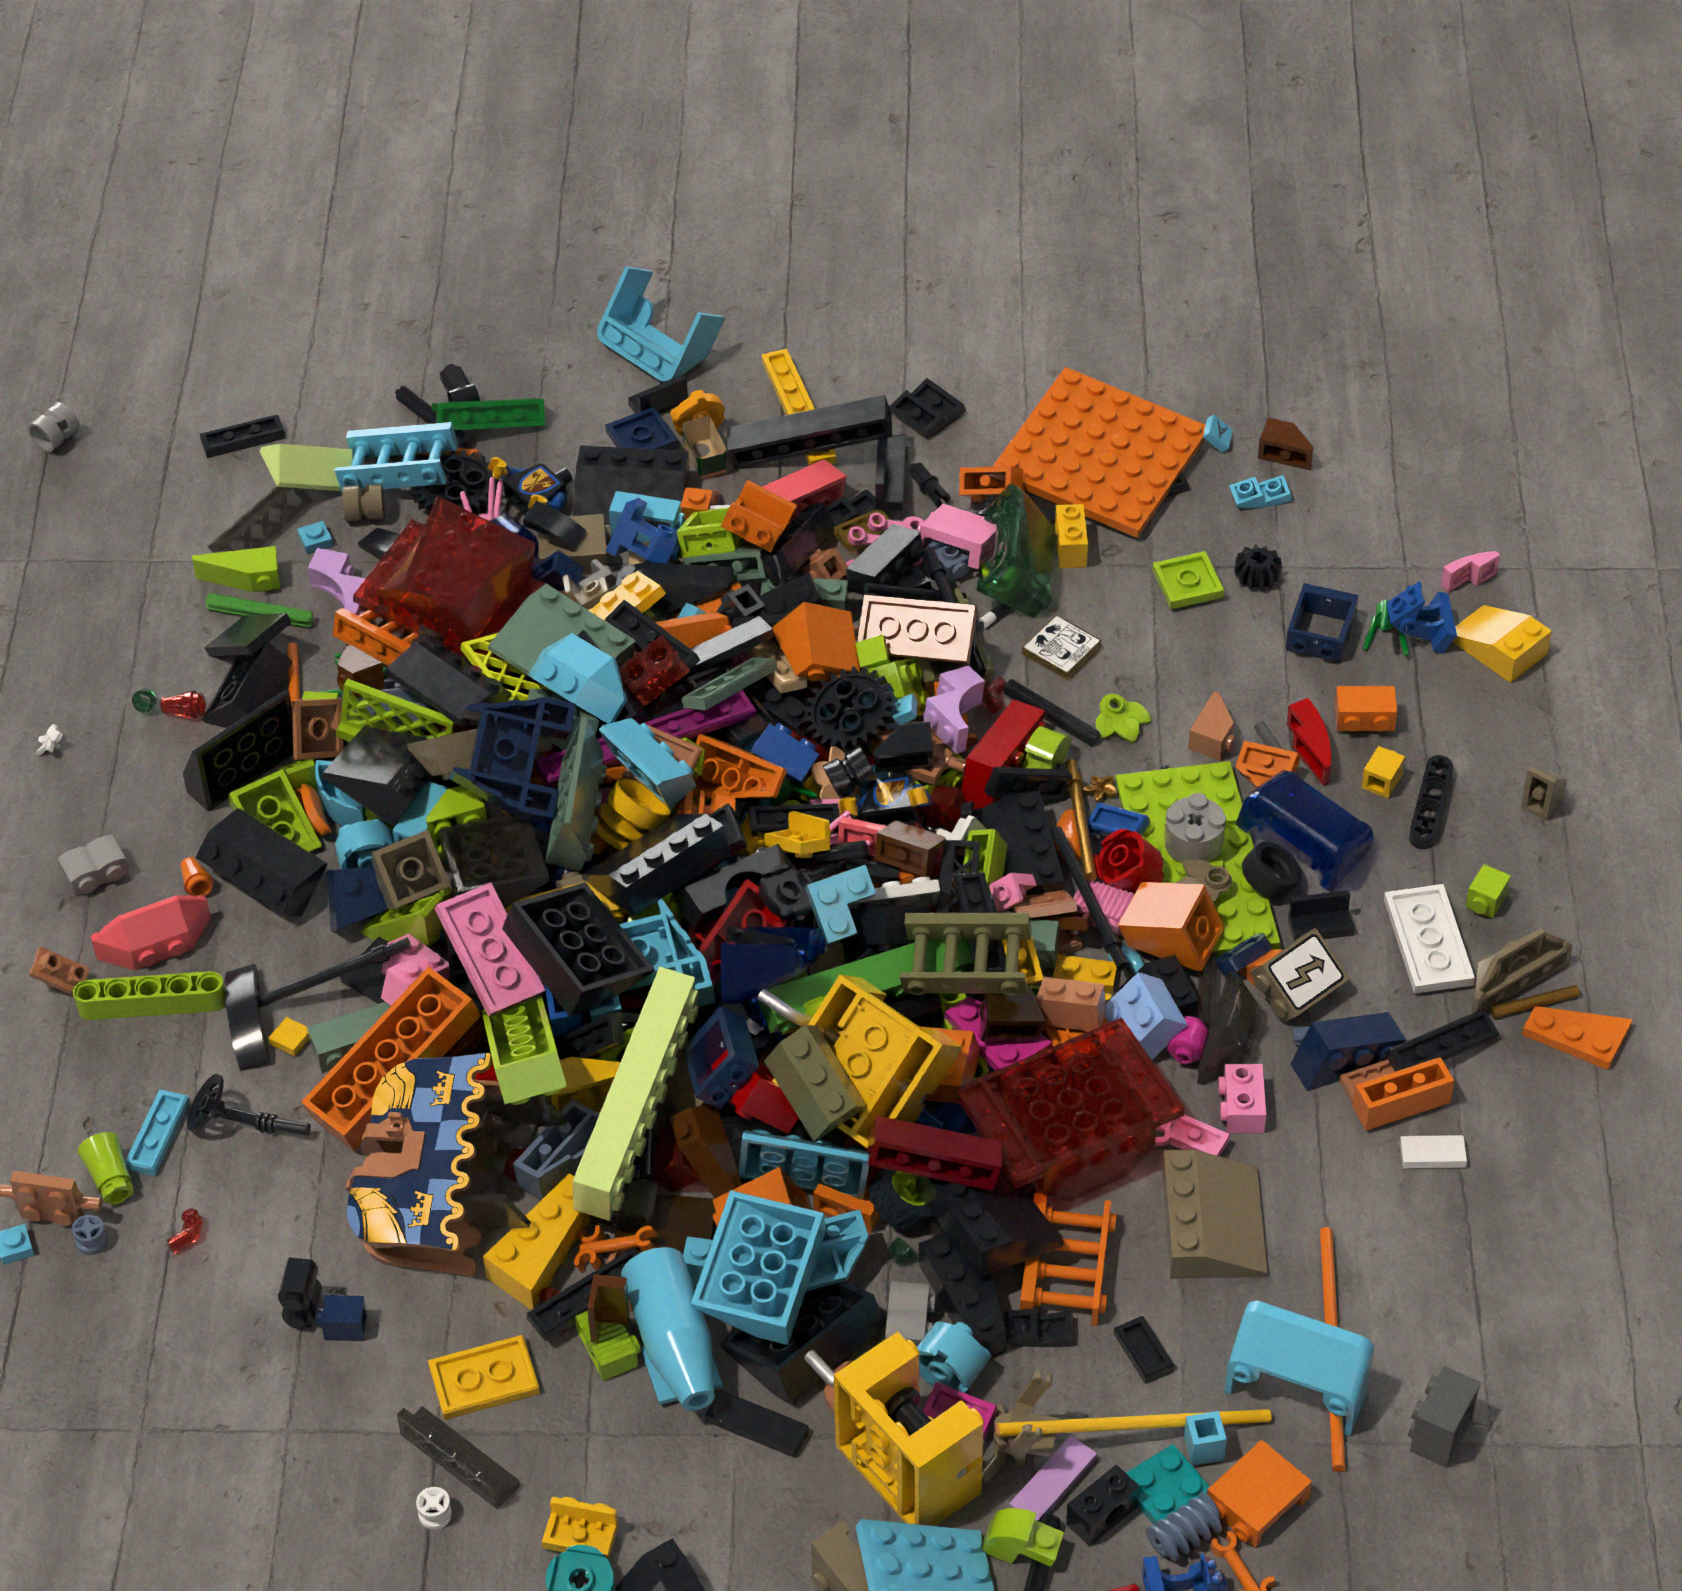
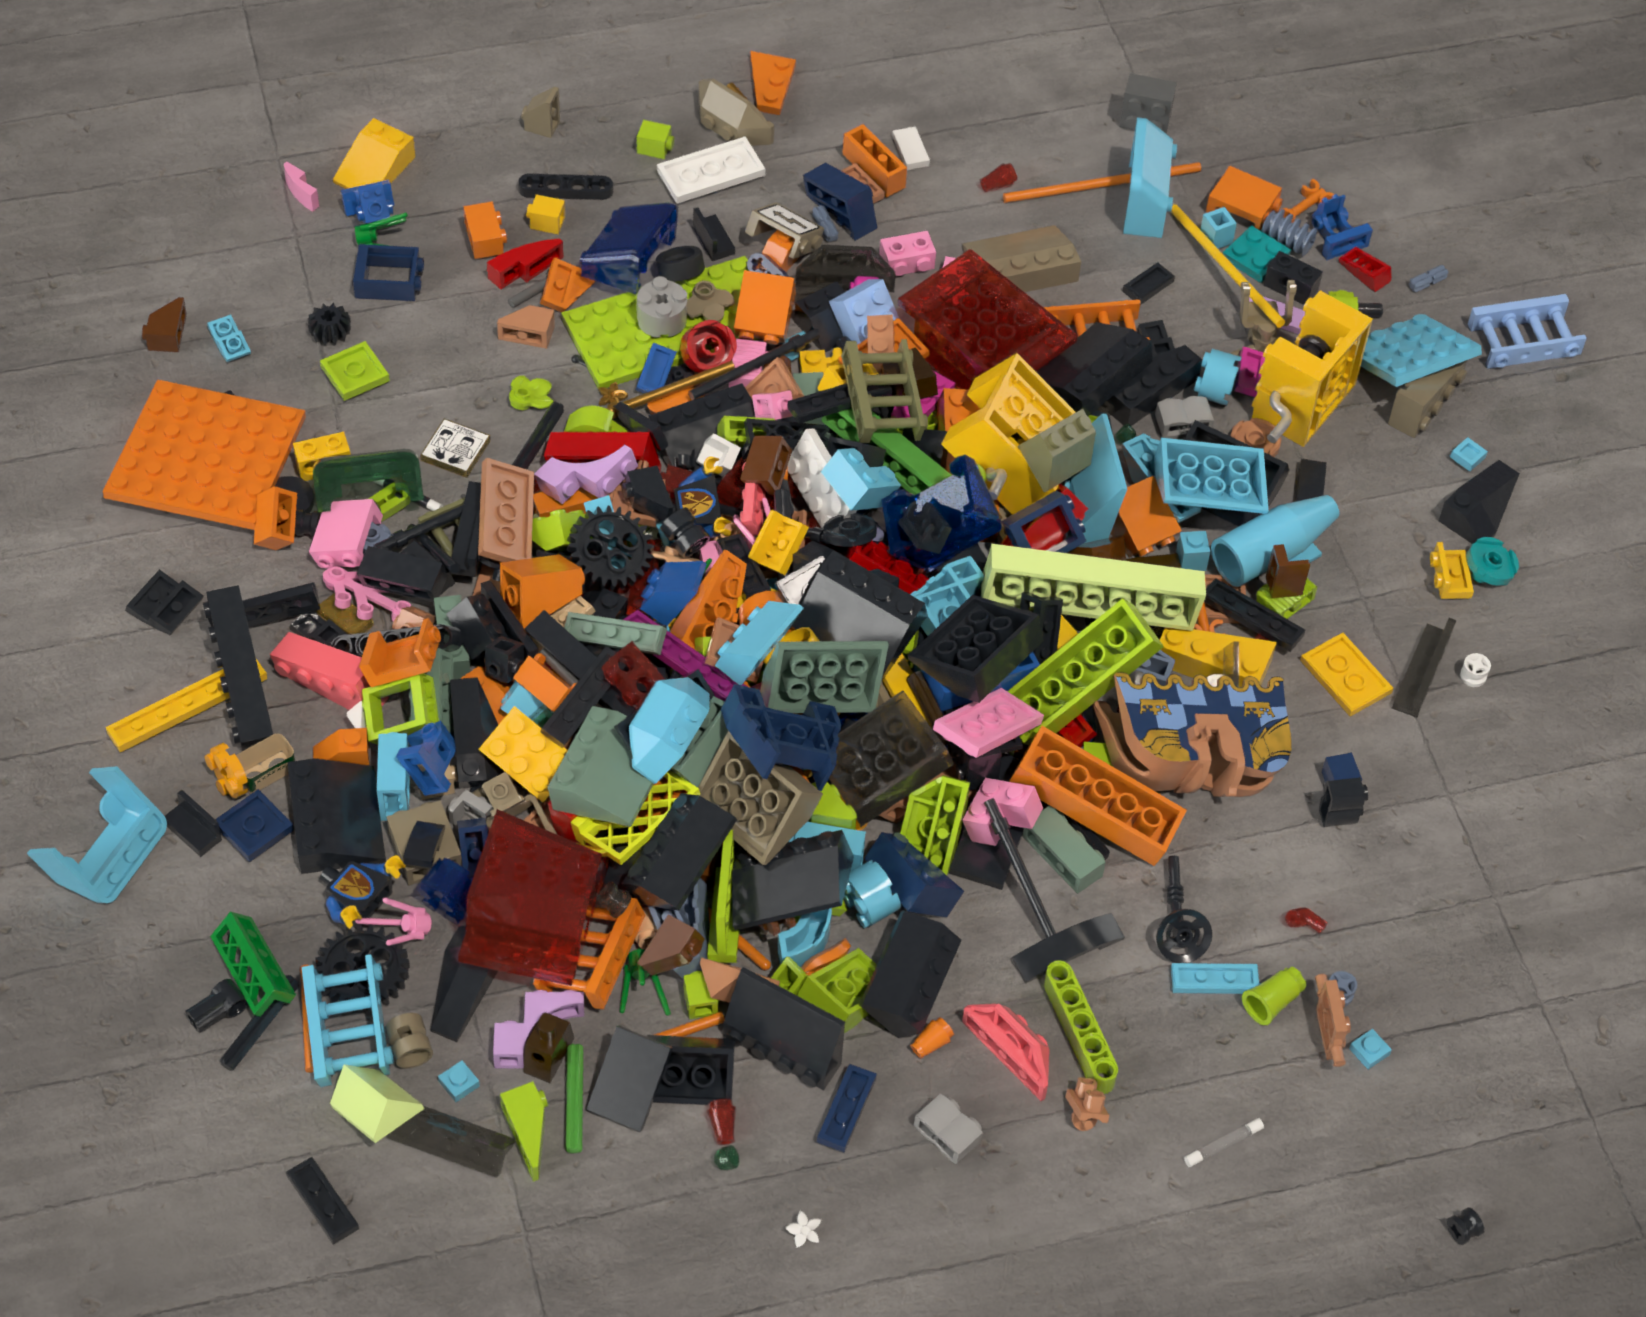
camera: 110 degrees left, 5 degrees up
(153, 796) = (846, 1108): none -> dark blue plate
(289, 1036) = (1077, 906): yellow tile -> none
(313, 590) = (550, 1040): none -> dark brown torso
(409, 870) = (914, 820): dark tan slope -> none
(872, 652) = (538, 543): lime tile -> none
(928, 484) = (272, 578): black axle -> none
(934, 1153) = (1083, 376): dark red brick -> none
(1217, 433) = (159, 376): medium azure tile -> none
(1358, 1231) = (1000, 177): none -> clear red cone
(1444, 1041) = (817, 146): black tile -> none

